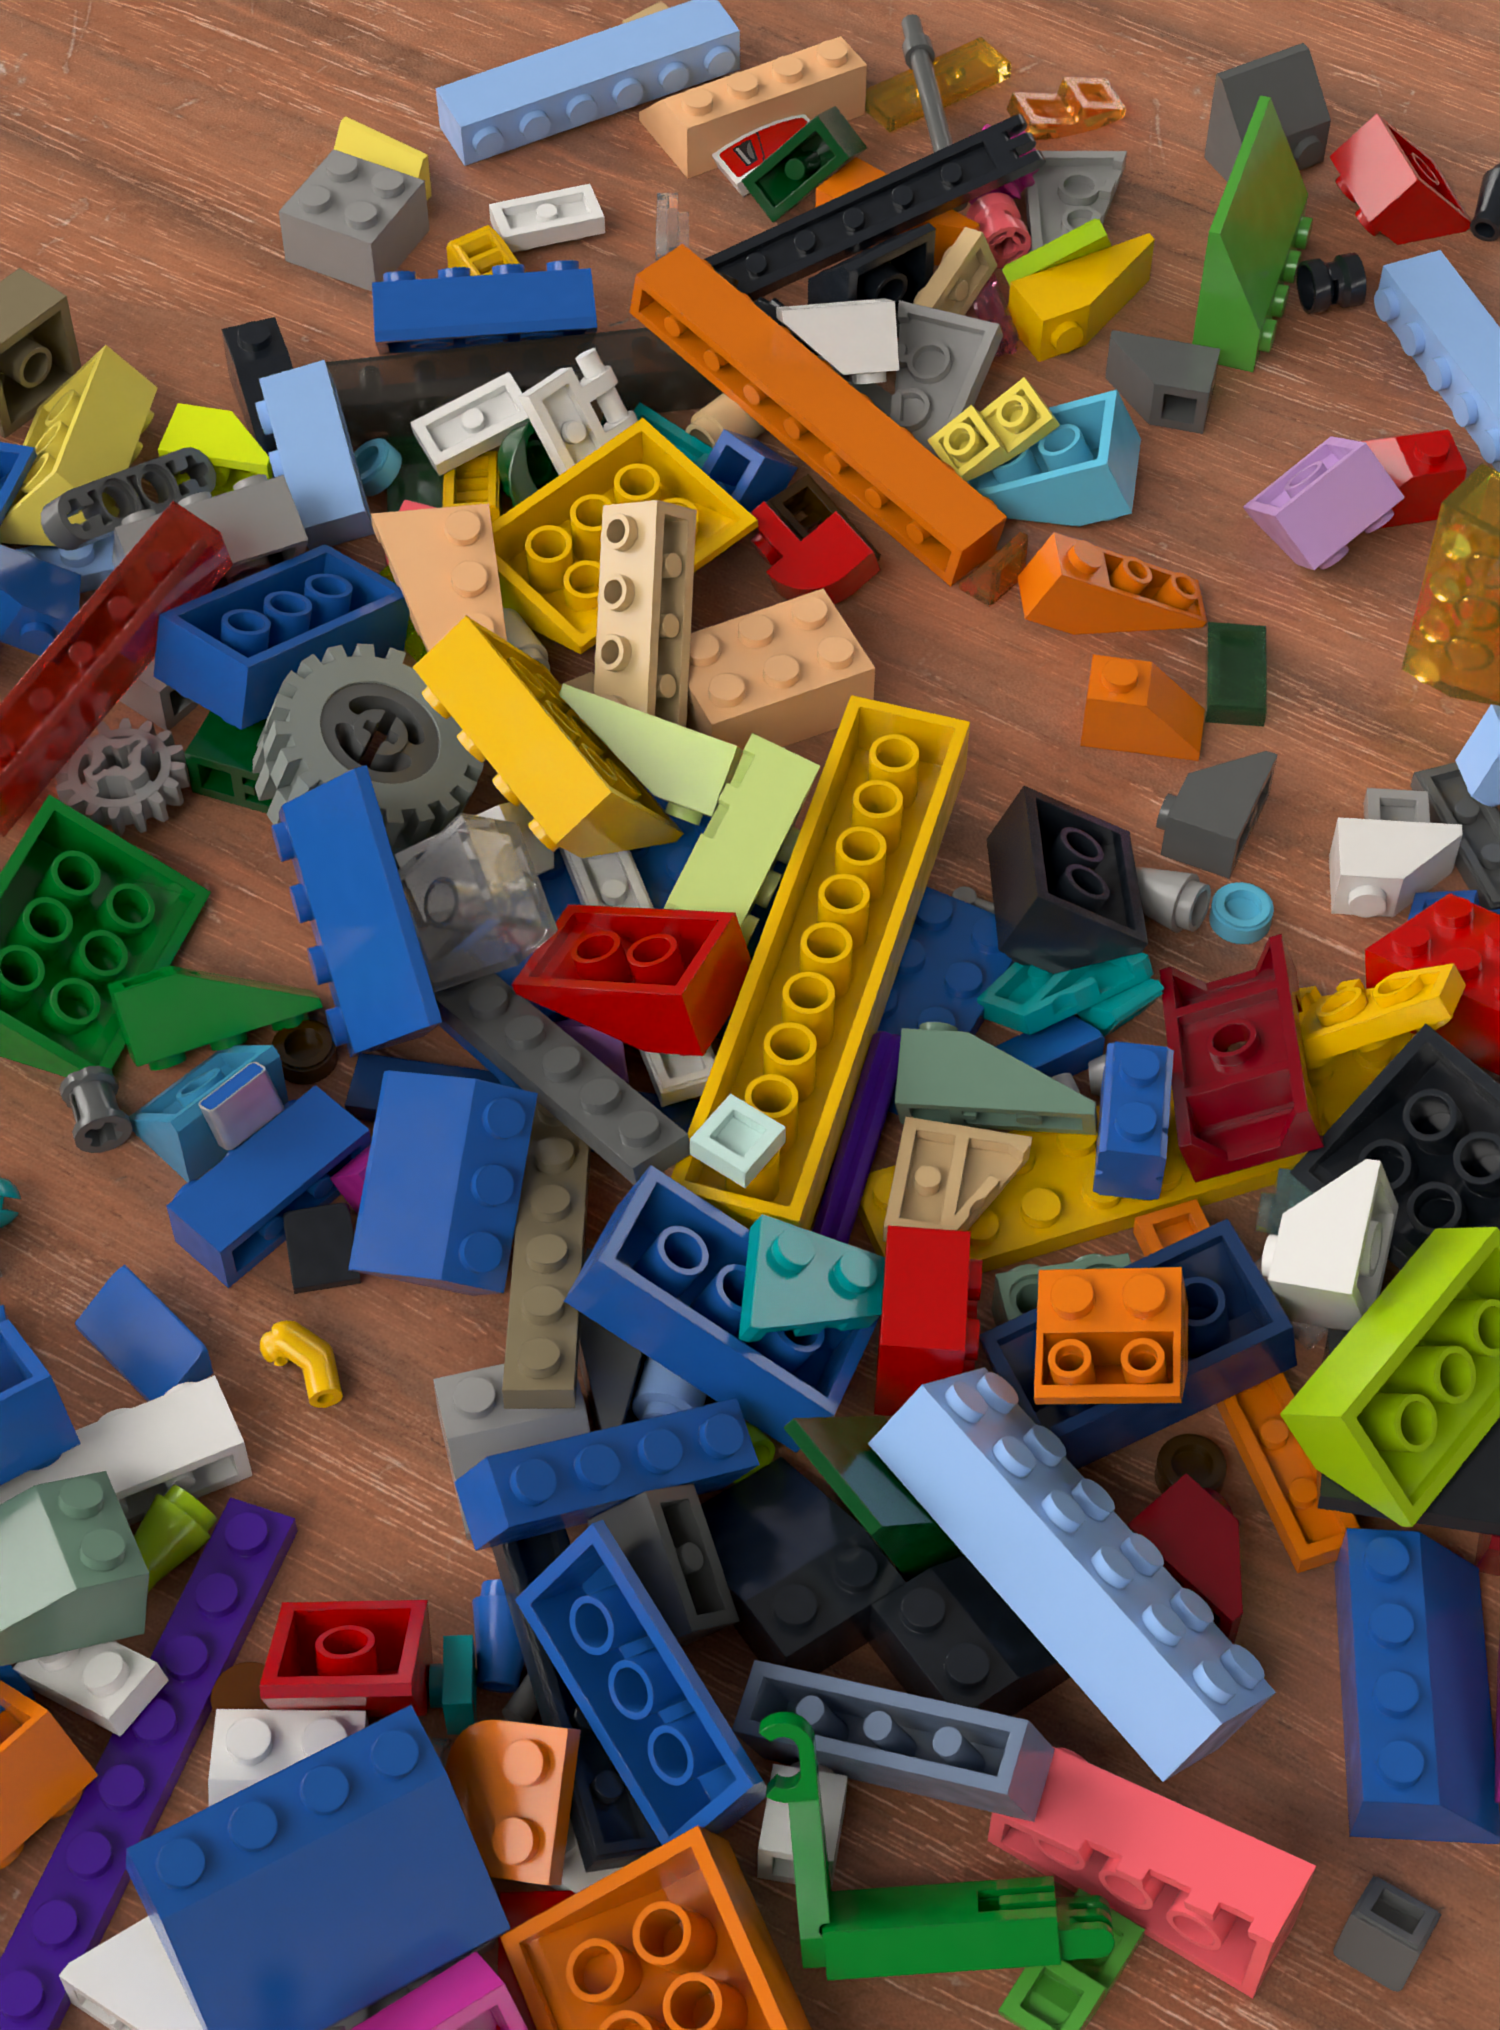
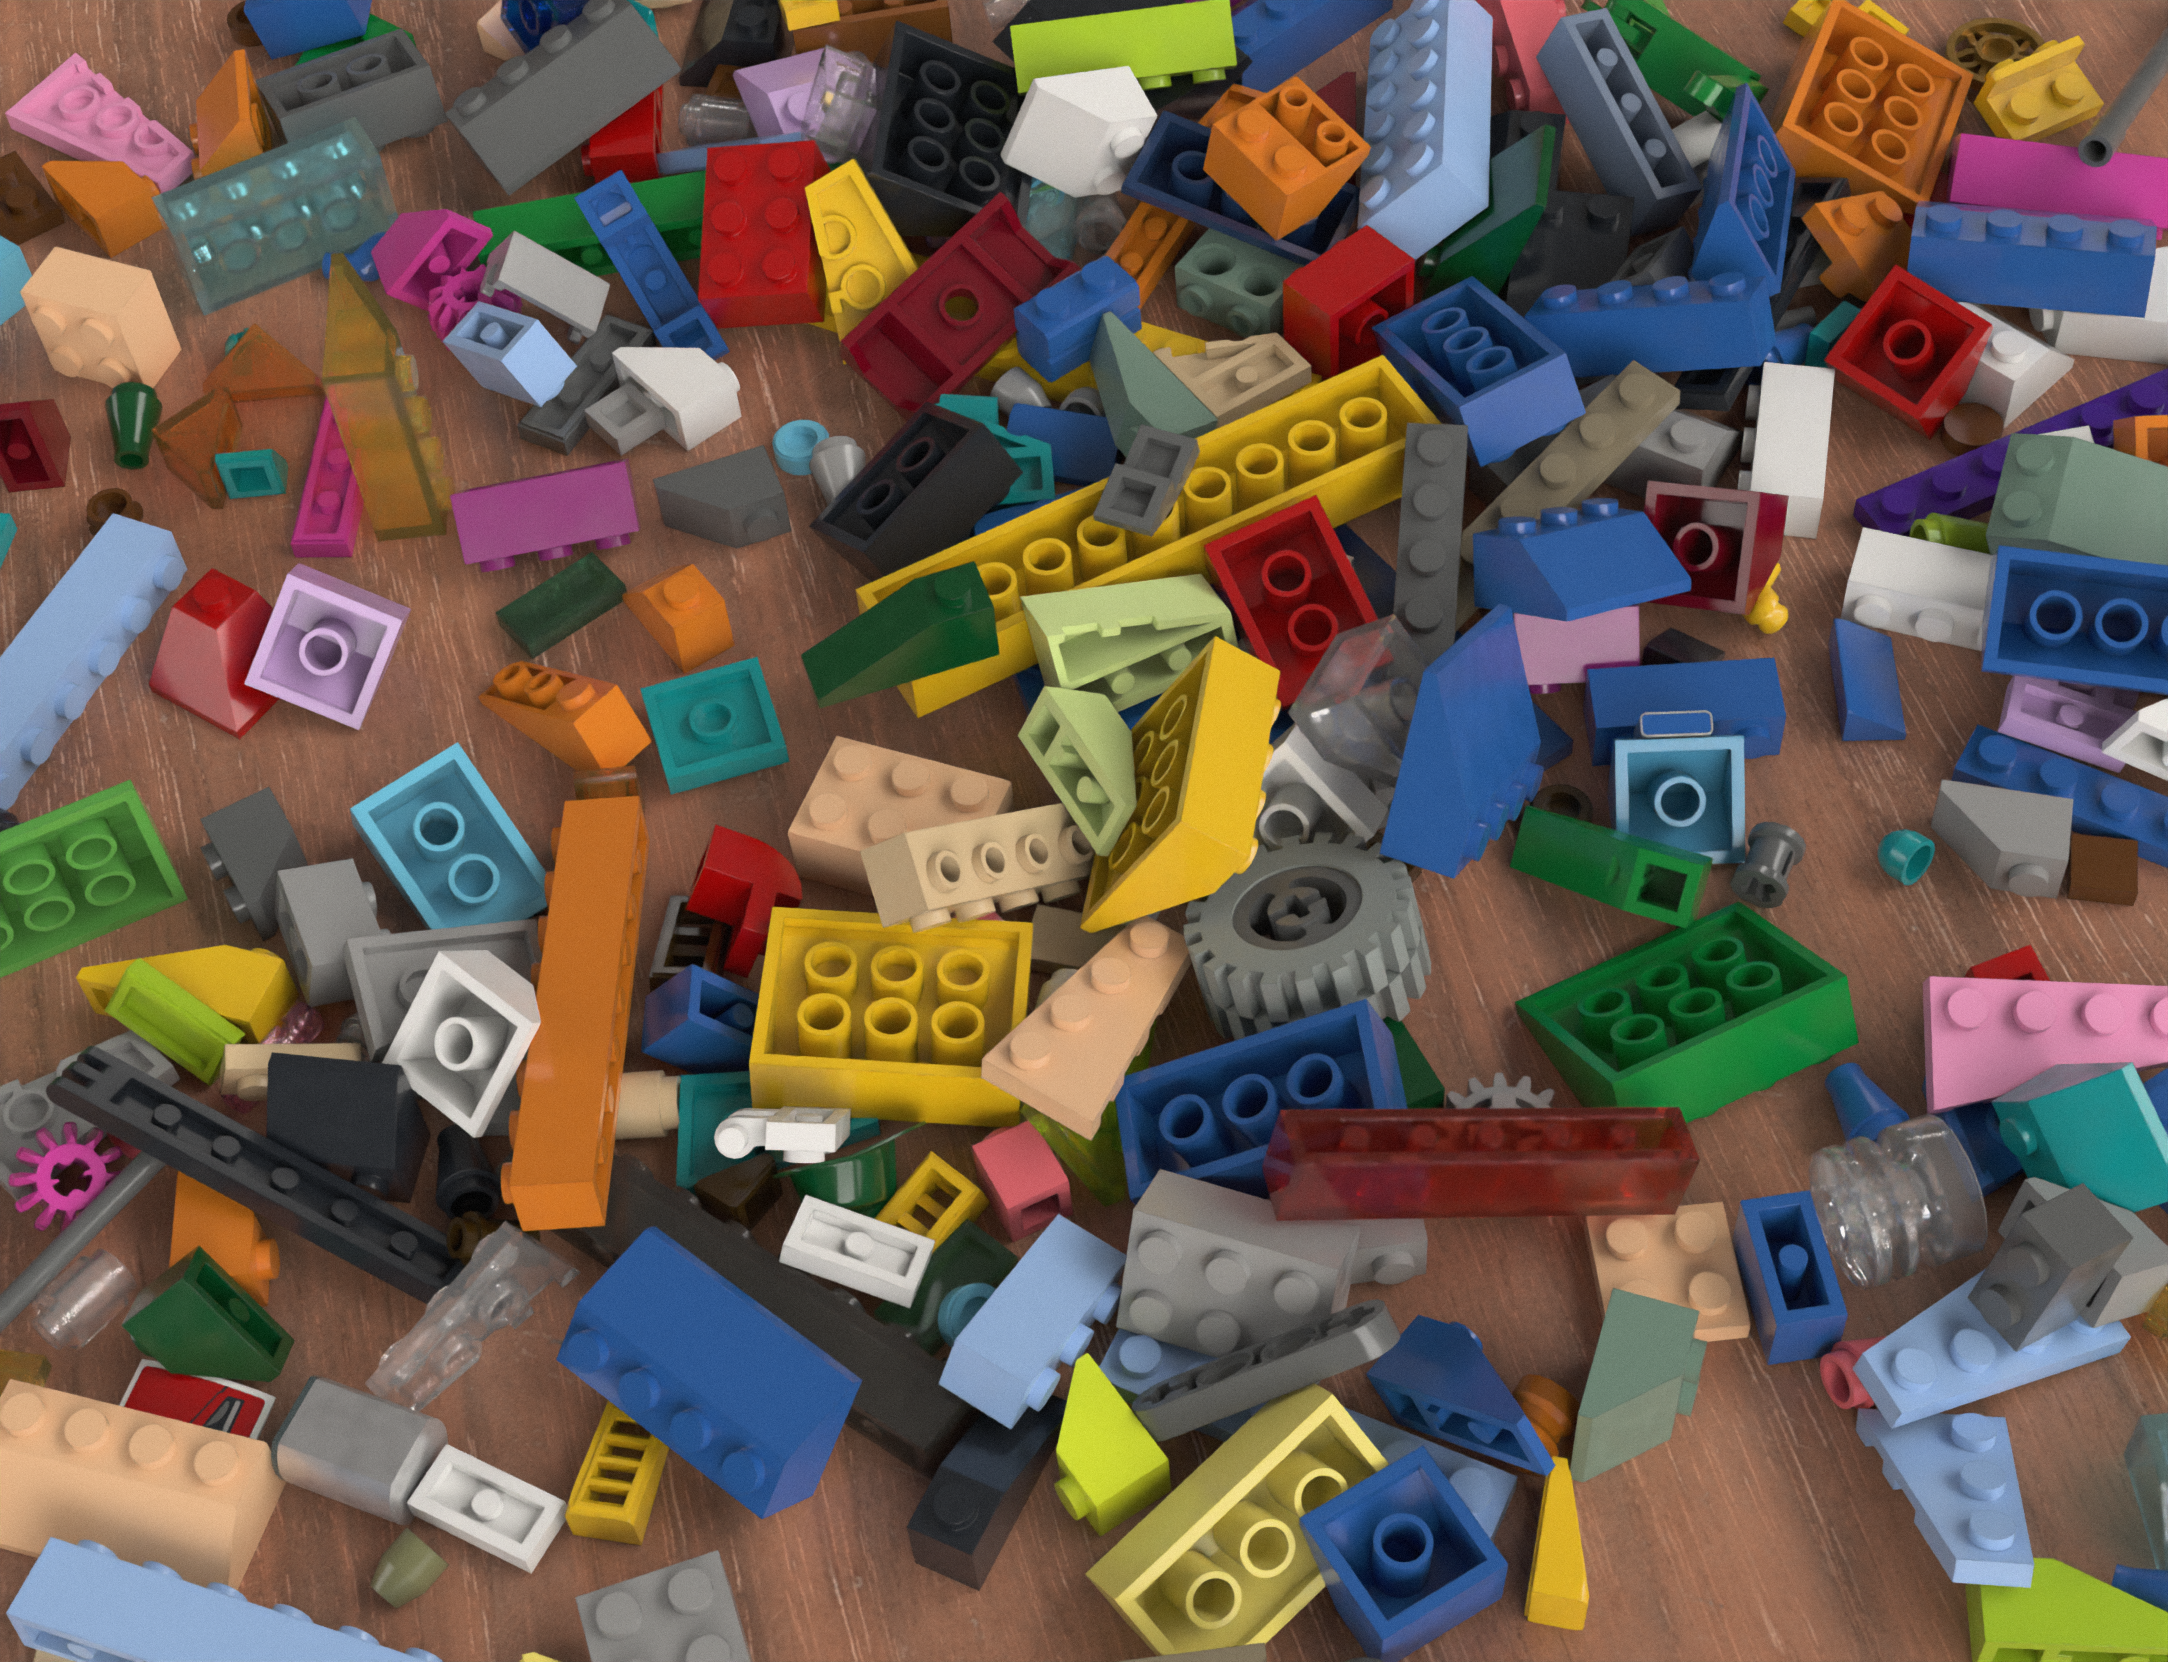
camera: 130 degrees left, 0 degrees up
(376, 1342) = (1721, 539): none -> dark red slope
(398, 1514) = (1789, 440): none -> white brick
(556, 172) = (406, 1569): none -> olive hose
(633, 175) = (356, 1448): none -> flat silver piece
(737, 1140) = (1377, 399): light aqua plate -> none
(806, 1282) = (1418, 329): teal wing -> none
(846, 941) = (1148, 482): none -> dark grey slope
(862, 692) = (907, 636): none -> dark green slope
(903, 138) = (82, 1300): none -> clear brick
(1000, 663) = (714, 725): none -> teal plate
(1002, 430) = (483, 887): light yellow slope -> none
(1053, 359) = (316, 914): none -> light grey brick
(1342, 708) = (546, 514): none -> magenta slope

